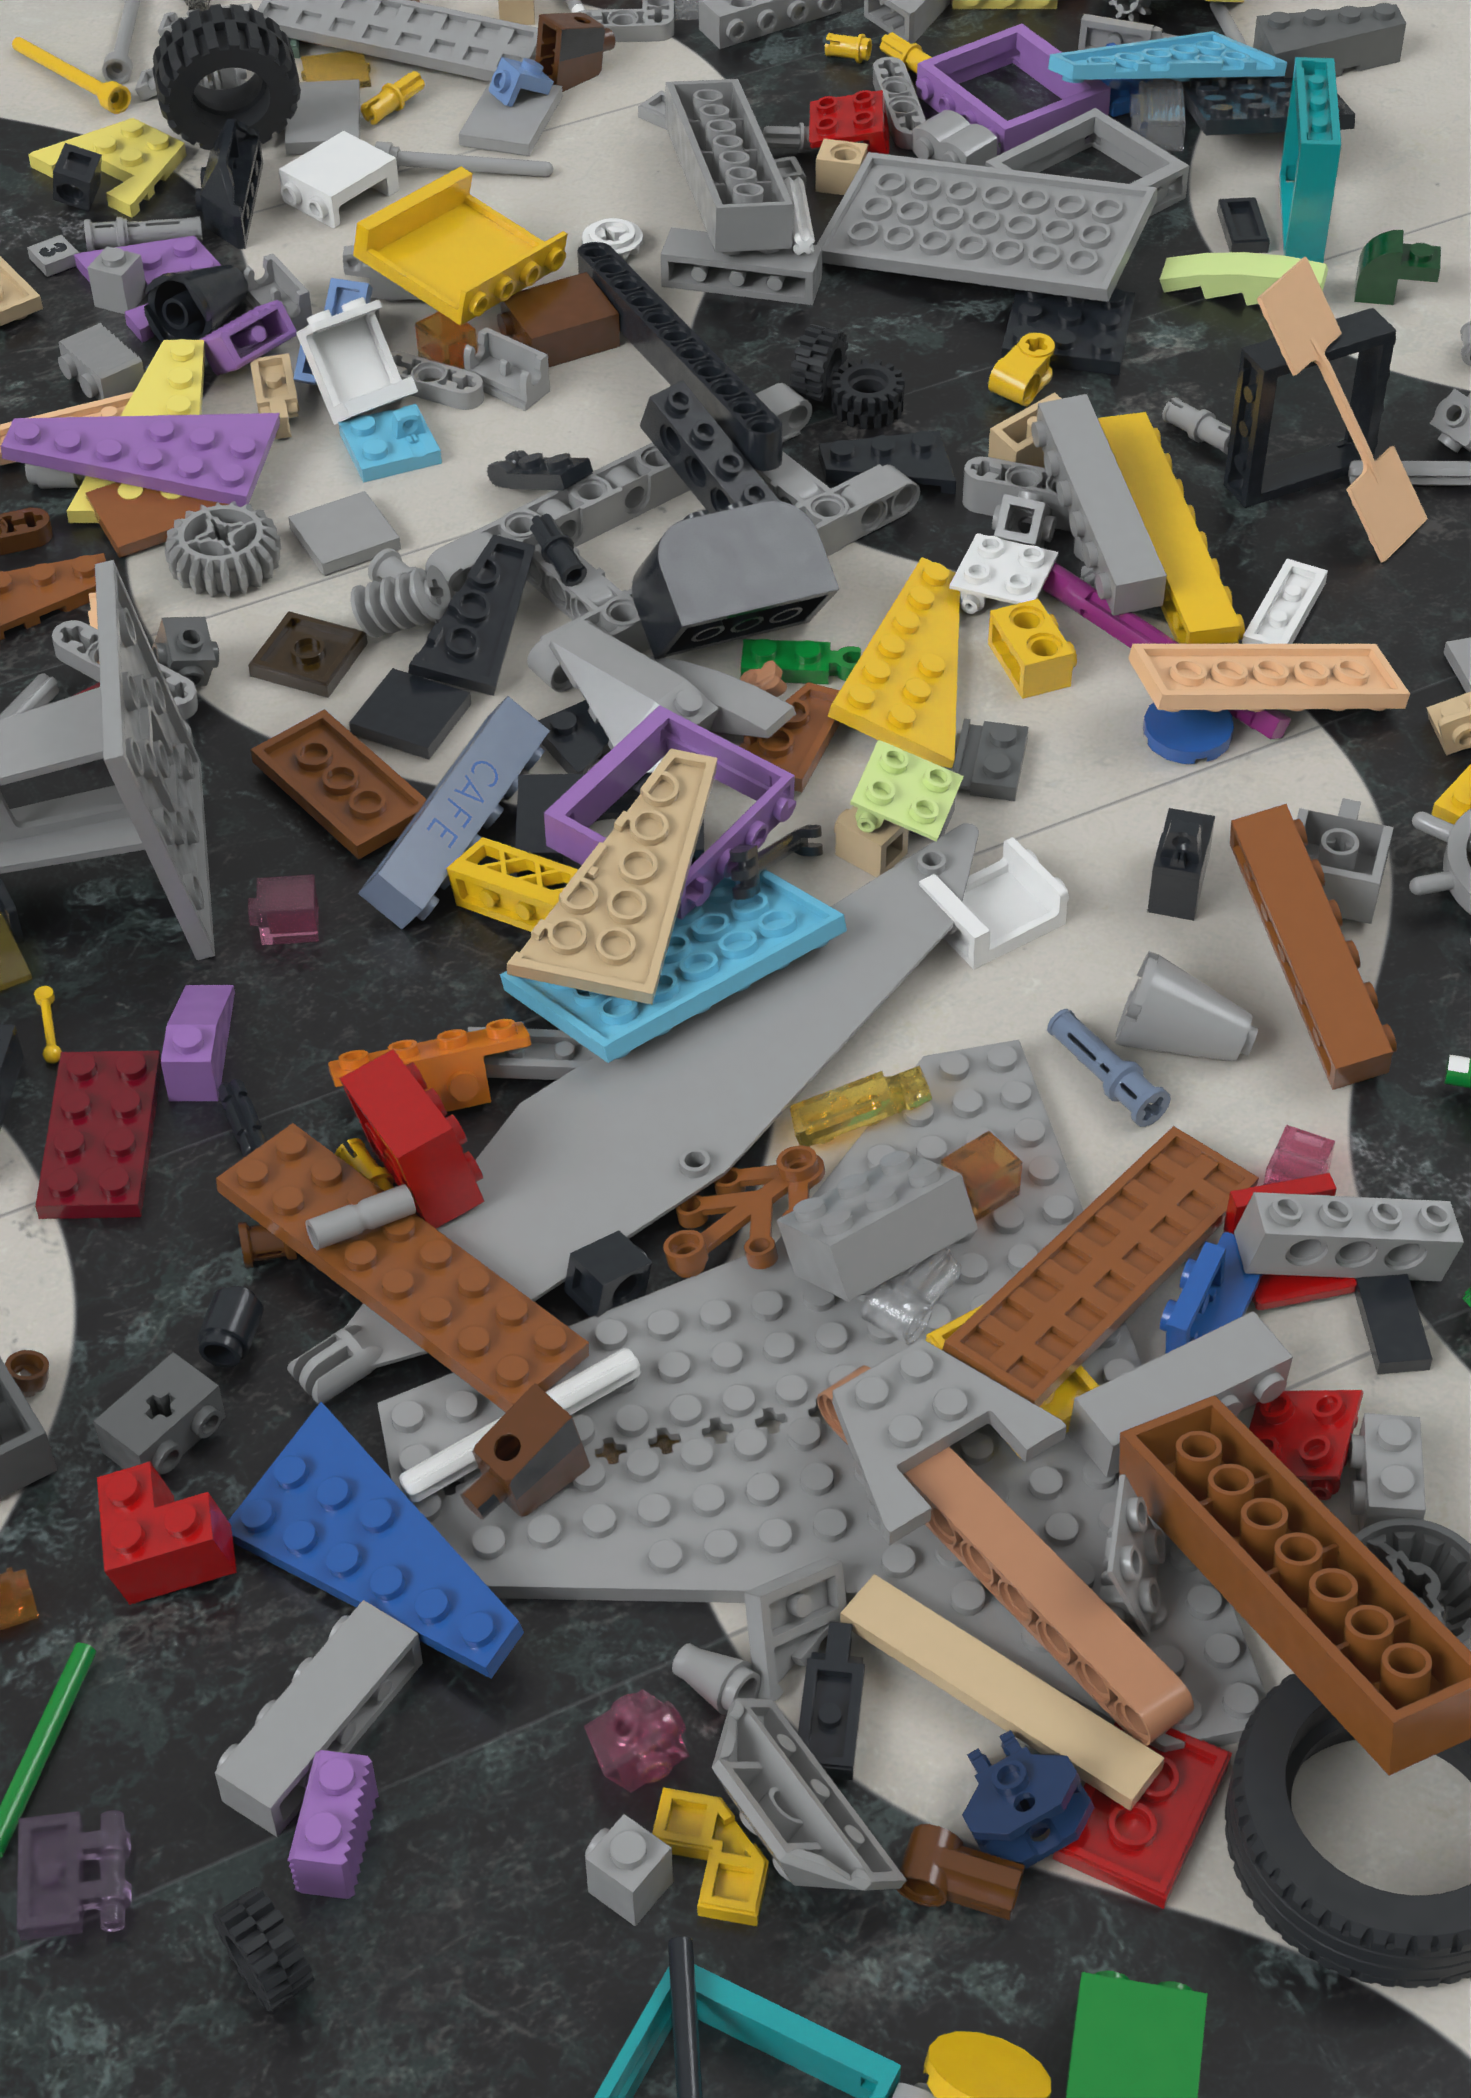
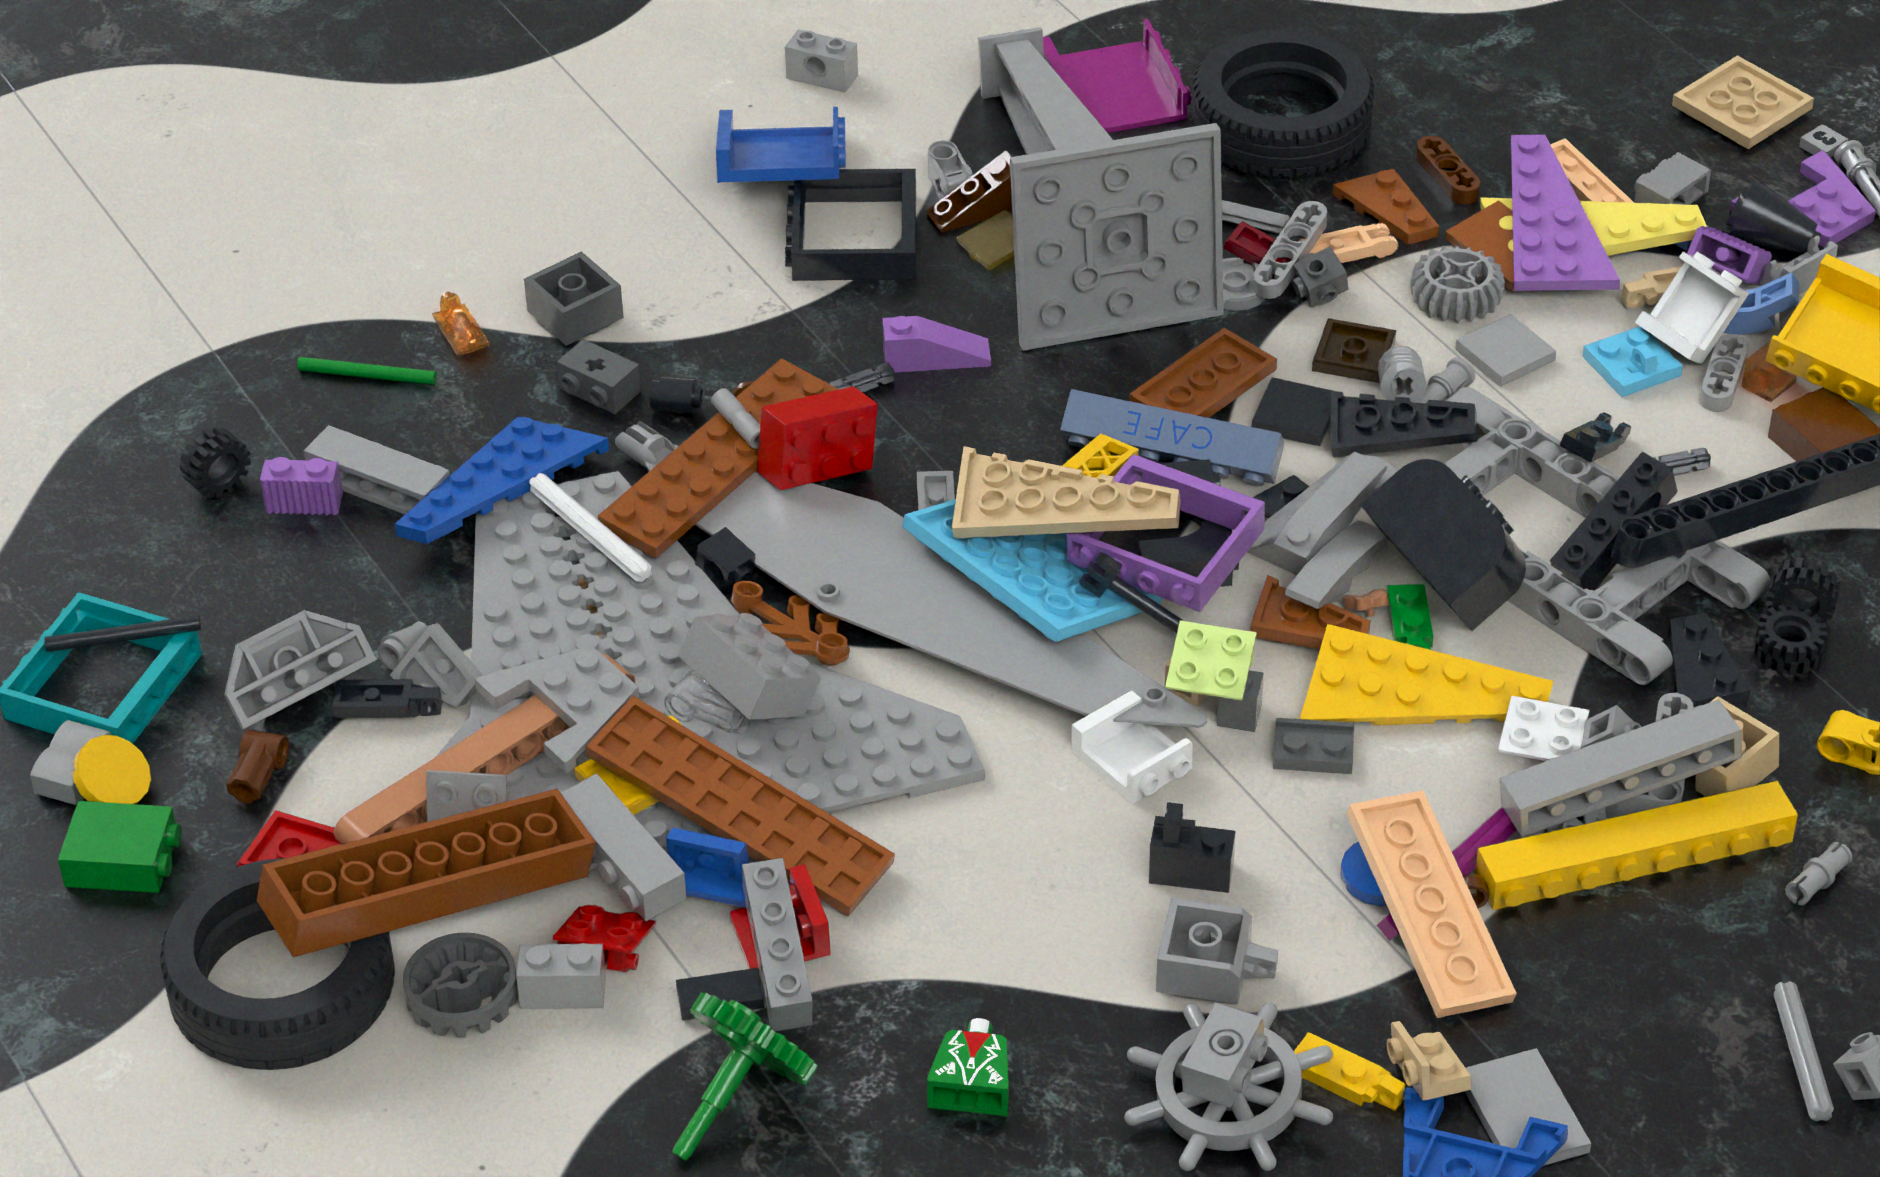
camera: 85 degrees right, 5 degrees down
(33, 1370) = (629, 314): reddish brown hinge -> none
(45, 997) = (969, 277): yellow hinge -> none
(51, 1874) = (277, 385): clear purple plate -> none
(99, 1135) = (837, 319): dark red plate -> none
(117, 280) = (1787, 172): light grey brick -> none
(159, 1542) = (505, 379): red brick -> none
(285, 910) = (1060, 369): clear pink brick -> none
(450, 1063) = (905, 455): orange bracket -> none
(509, 369) = (1744, 413): light grey hinge -> none
(526, 1456) = (550, 521): reddish brown torso -> none
(558, 550) = (1474, 445): black axle -> none
(573, 431) = (1683, 462): none -> axle
(628, 1868) = (261, 607): light grey brick -> none
(638, 1740) = (347, 594): clear pink brick -> none
(858, 1105) = (894, 674): clear yellow hinge -> none
(988, 1172) = (816, 733): clear orange brick -> none
(1002, 1691) = (403, 755): tan tile -> none
(1023, 1800) = (303, 783): dark blue hinge -> none
(1031, 648) = (1451, 758): yellow brick -> none
(1121, 1079) = (948, 828): sand blue pin -> none
(1182, 1015) = (1010, 848): light grey cone -> none
(1258, 373) = (1771, 824): black window -> none
(1286, 604) = (1554, 932): white plate -> none
(1299, 1156) = (859, 931): clear pink brick -> none
(1303, 331) = (1787, 808): light nougat hinge -> none
(1311, 947) = (1080, 915): dark orange brick -> none

